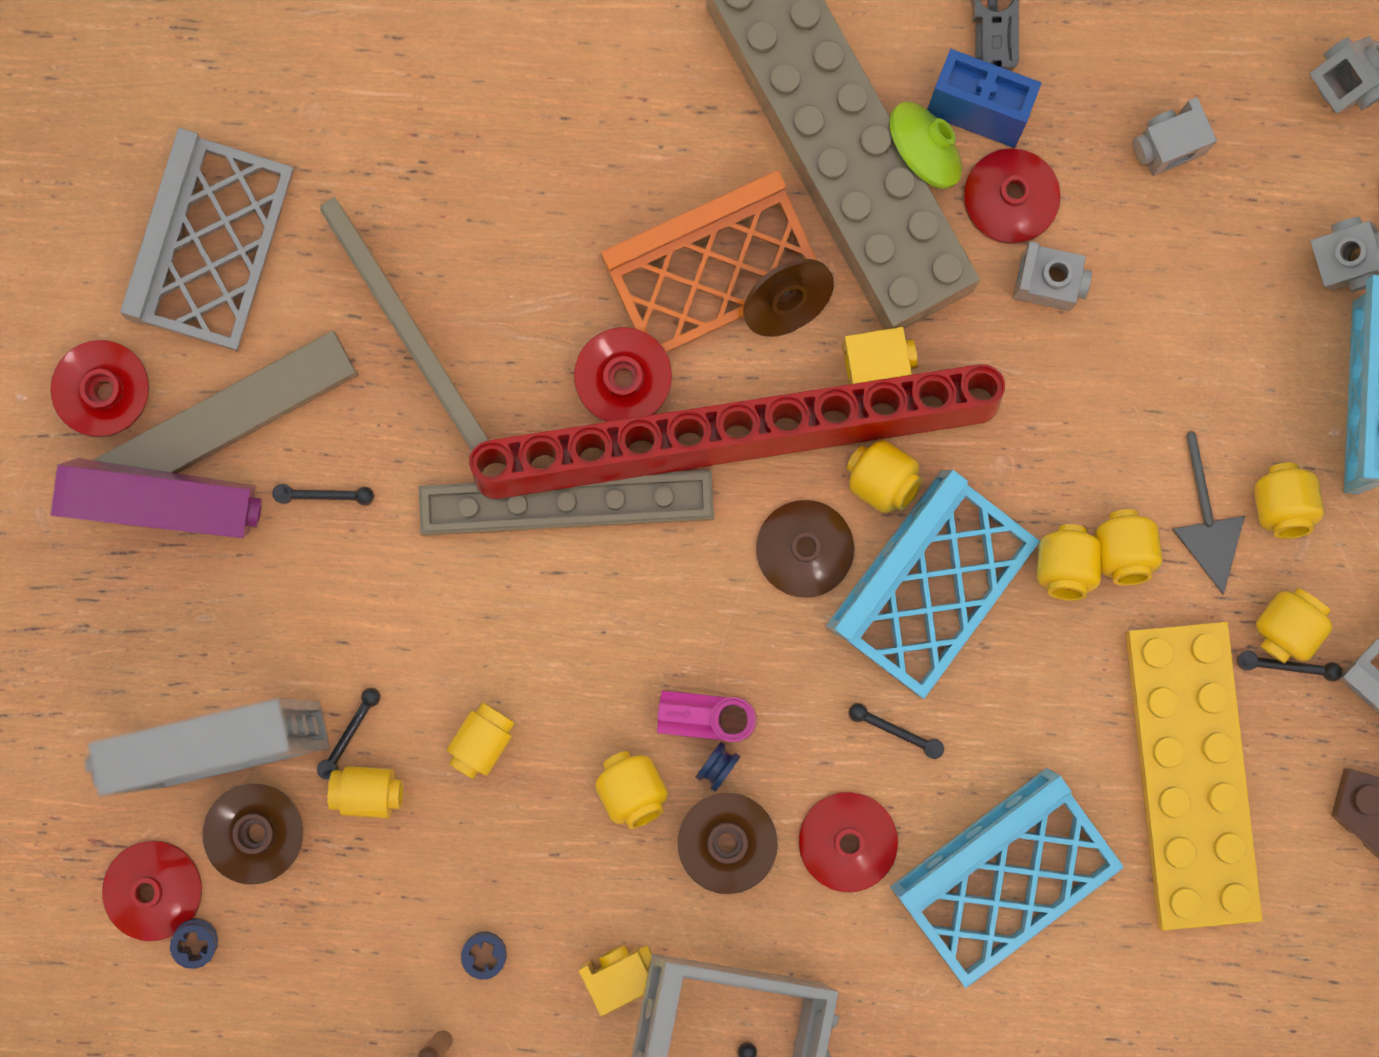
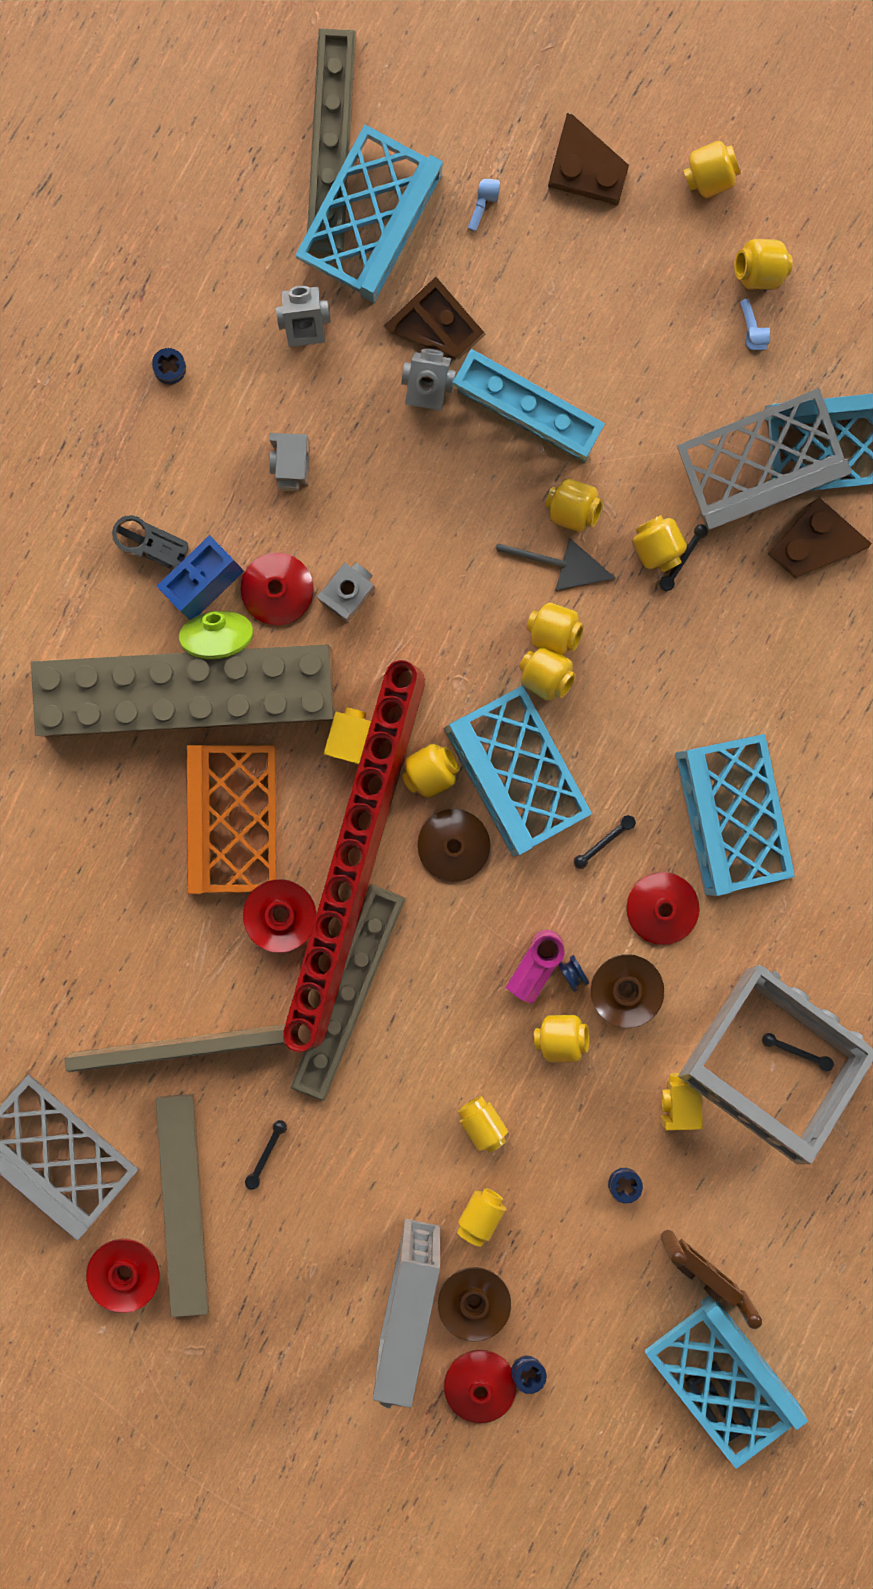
camera: 70 degrees left, 5 degrees up
(154, 499) = (217, 1274): magenta slope -> none
(370, 698) = (419, 1184): black hinge -> none
(788, 297) = (278, 779): reddish brown dish -> none
(1193, 776) = (726, 657): yellow plate -> none

